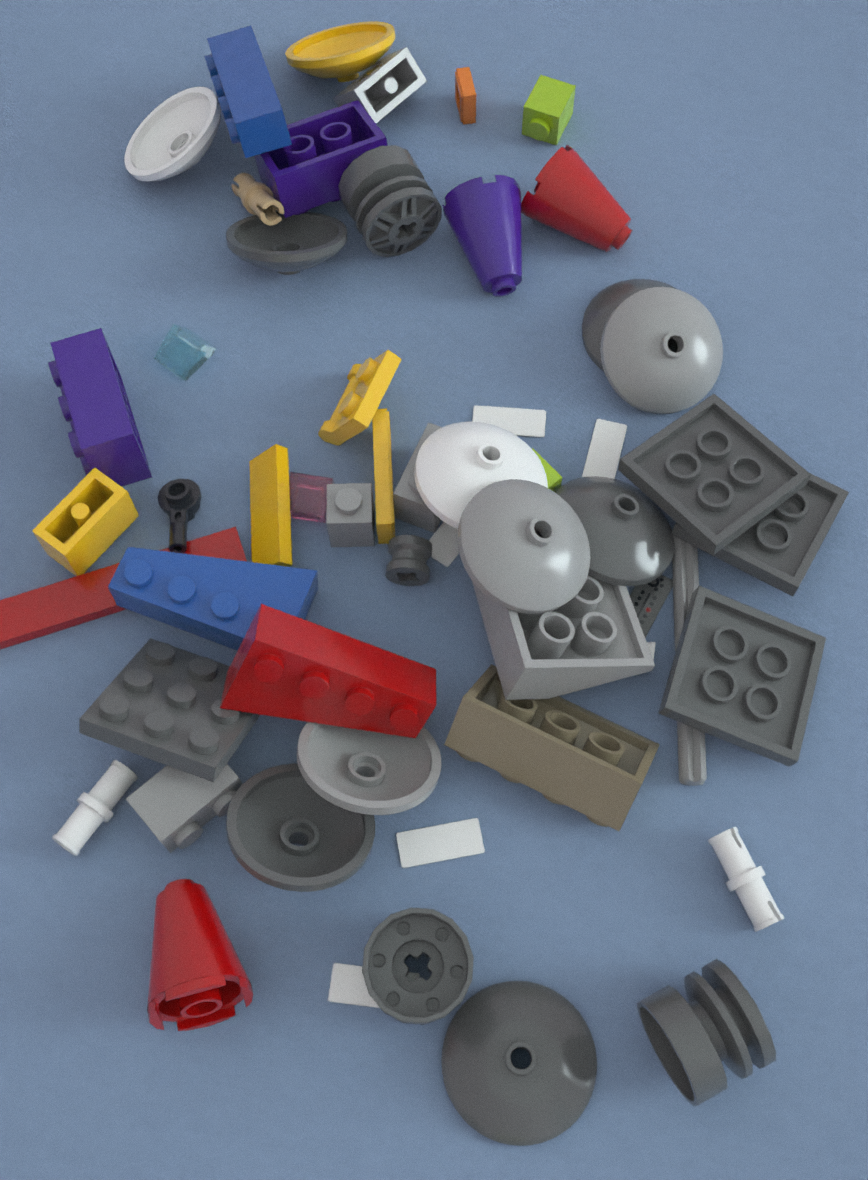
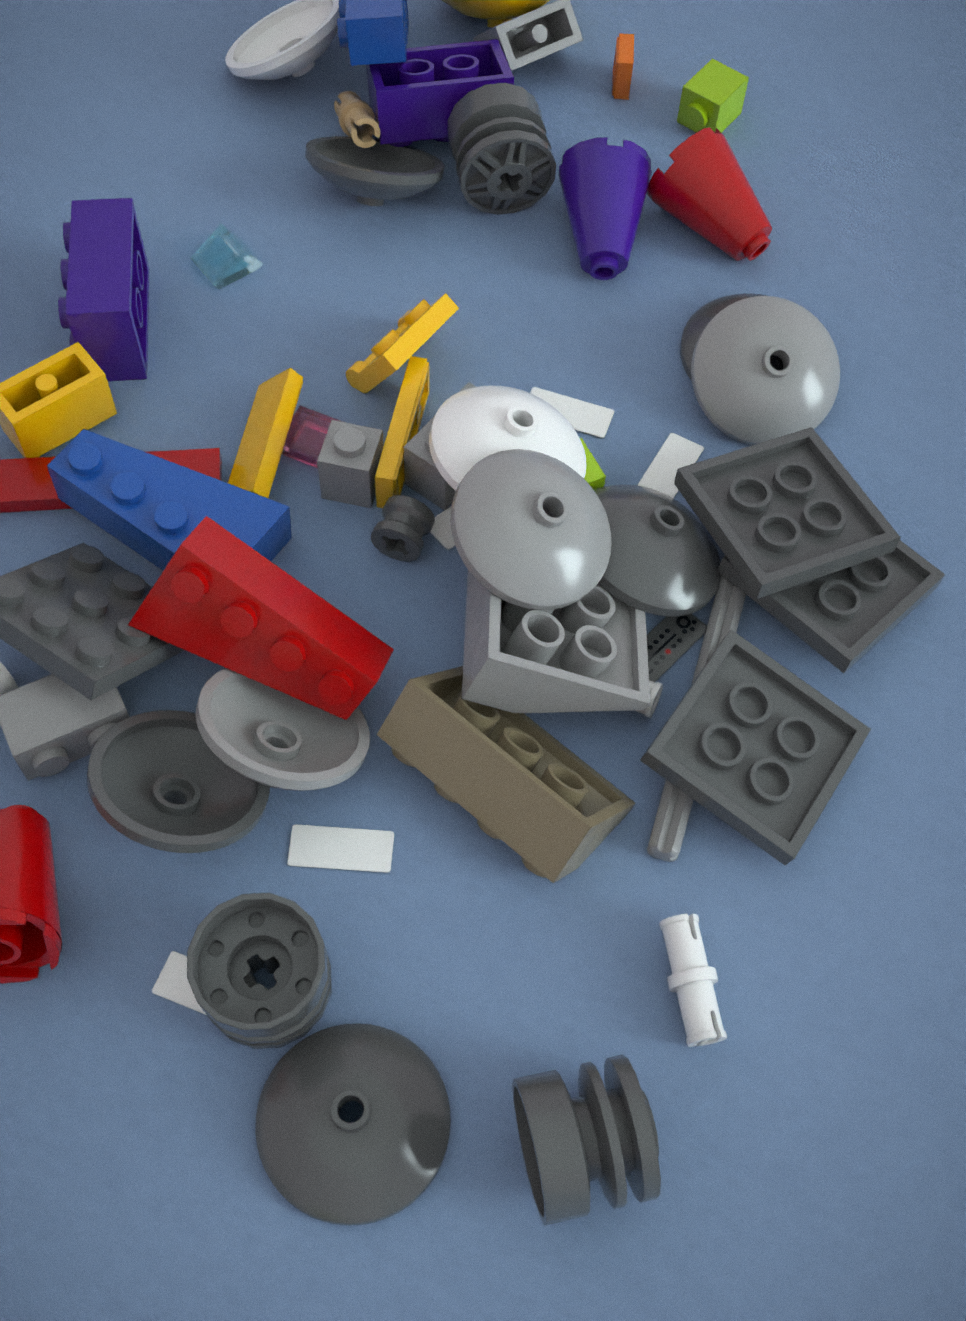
camera: 10 degrees right, 5 degrees down
(180, 501) = (167, 409): black plate -> none

